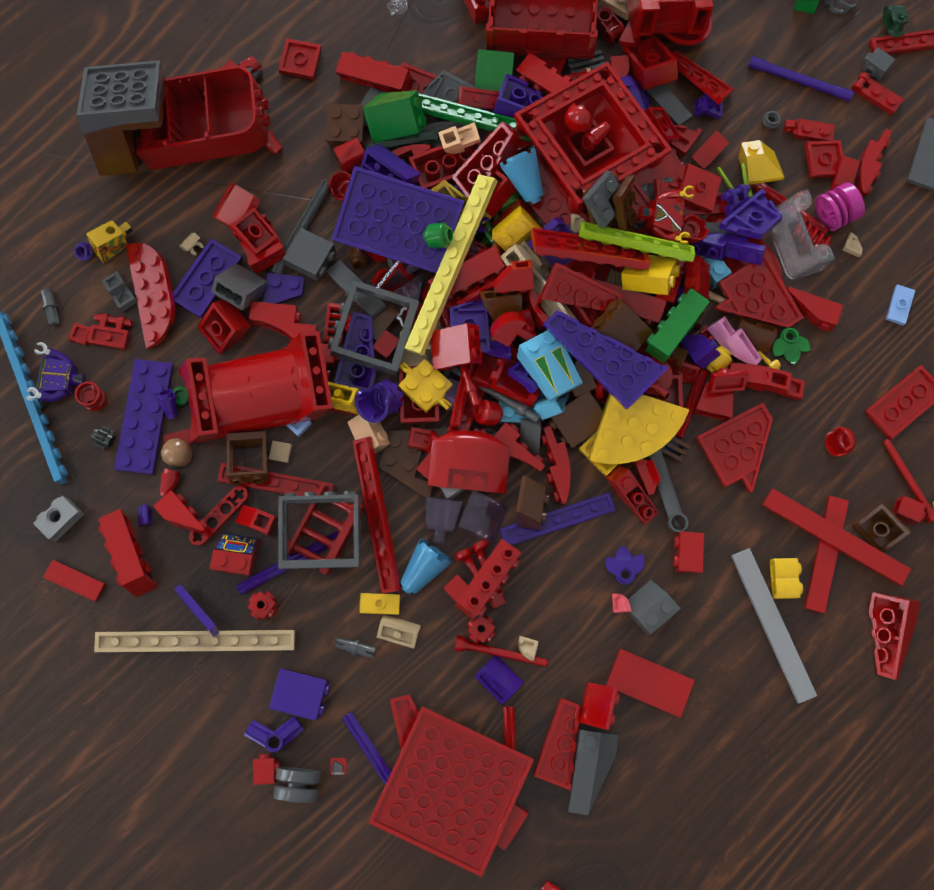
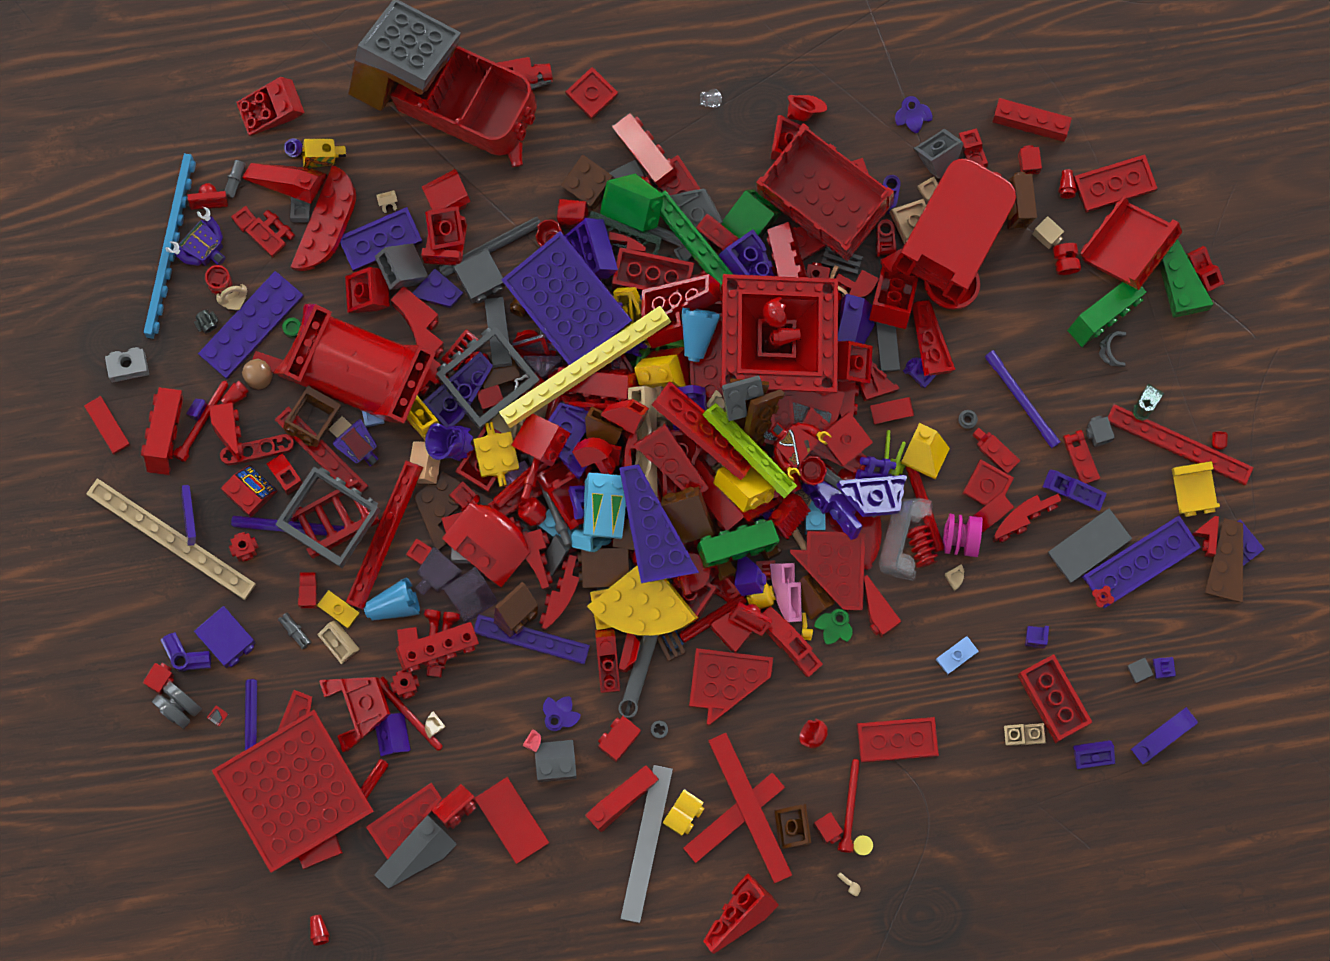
camera: 30 degrees right, 0 degrees up
(37, 333) = (207, 197): none -> red tile
(41, 230) = (270, 106): none -> red slope
(98, 278) = (289, 180): none -> red wedge
(115, 406) = (232, 300): none -> tan piece
(155, 560) = (182, 452): none -> red piece
(168, 402) = (278, 325): dark purple cone -> none
(301, 454) = (357, 443): none -> torso
(343, 605) = (308, 590): none -> red leg
(415, 509) = (418, 551): none -> red tile
(438, 235) = (589, 336): green head -> none
(455, 139) = (671, 260): light nougat brick -> none
(459, 669) = (365, 704): none -> red wing
(715, 528) = (662, 723): none -> dark grey bush
(728, 601) = (621, 798): none -> red slope
(892, 119) = (1074, 489): none -> dark purple slope

